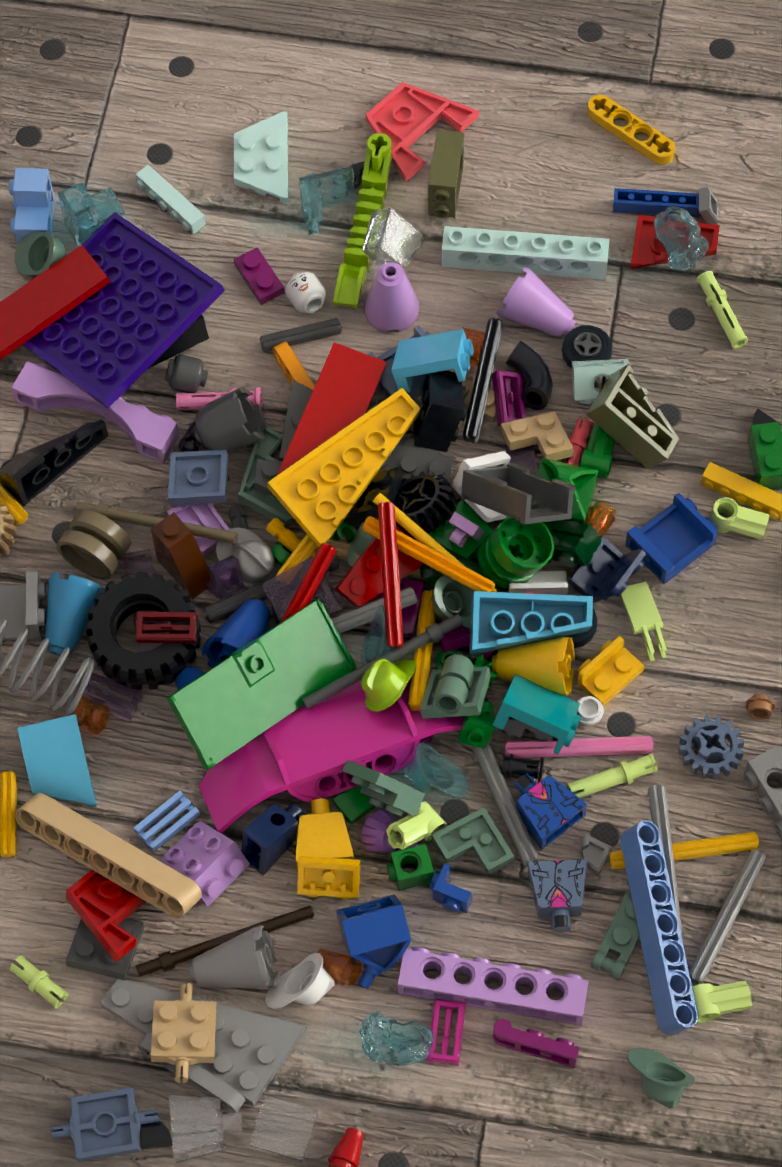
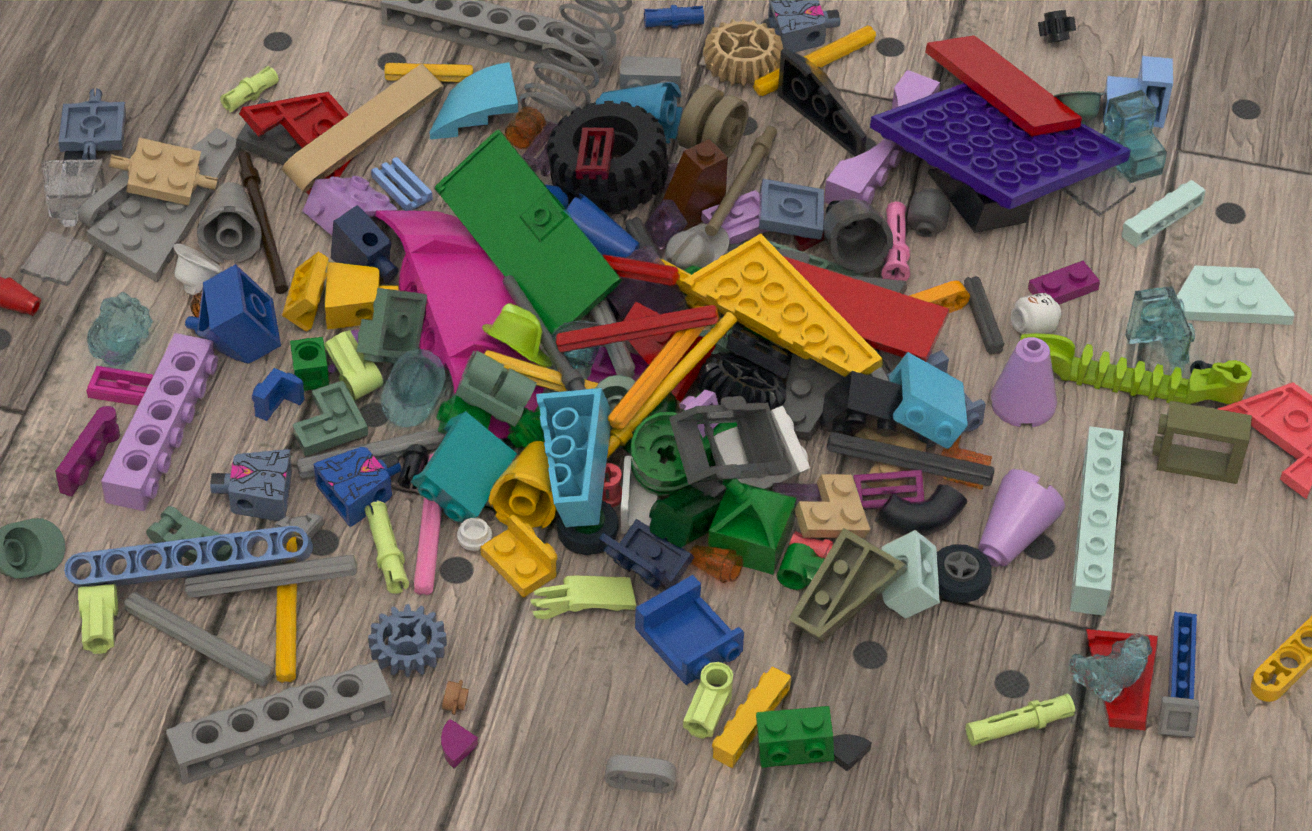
camera: 90 degrees right, 15 degrees down
(390, 239) = (1098, 385): clear torso -> none

